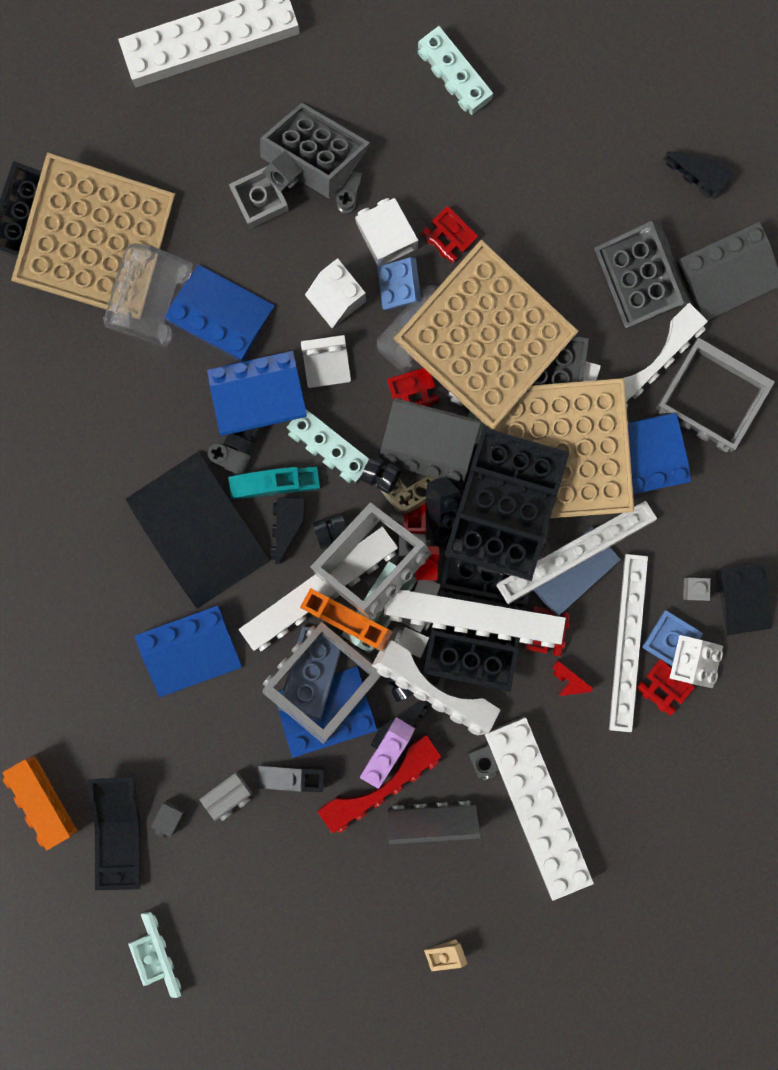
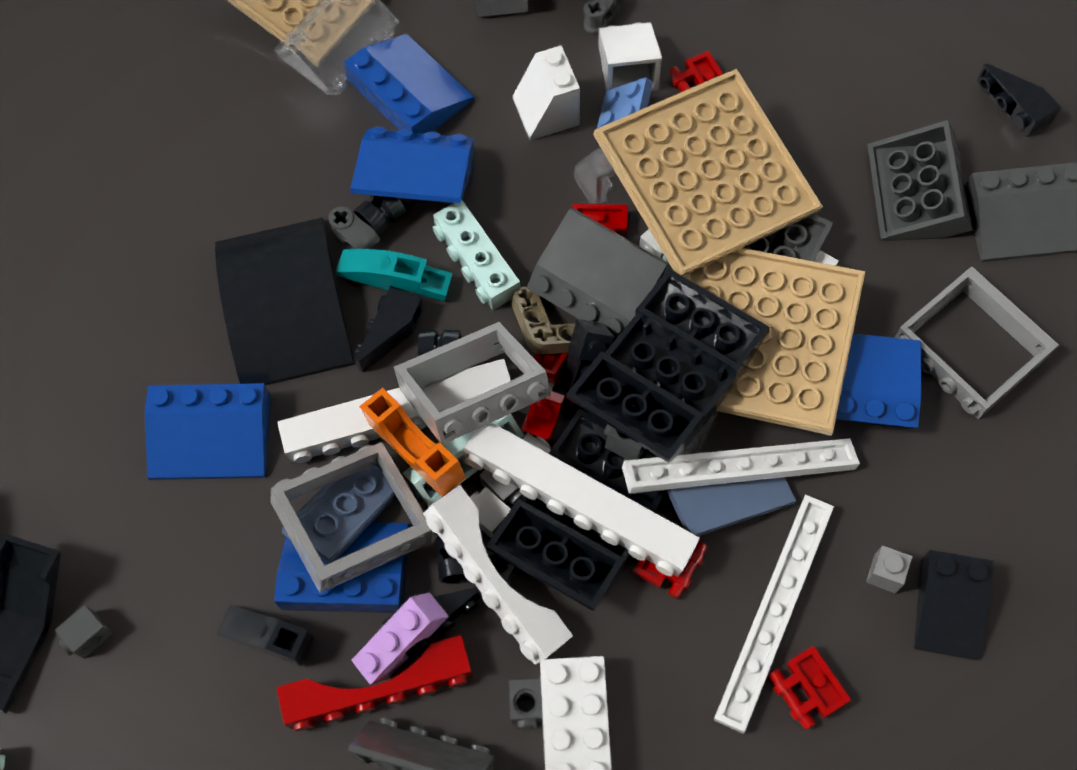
camera: 20 degrees right, 20 degrees down
(226, 796) = (170, 629): light grey brick -> none
(326, 361) = (509, 162): white bracket -> none
(373, 471) = (523, 293): black wheel -> none
(574, 685) = (685, 640): red slope -> none
(665, 636) = (836, 627): medium blue plate -> none
(682, 328) = (955, 256): white arch -> none
(696, 661) = (864, 663): white bracket -> none

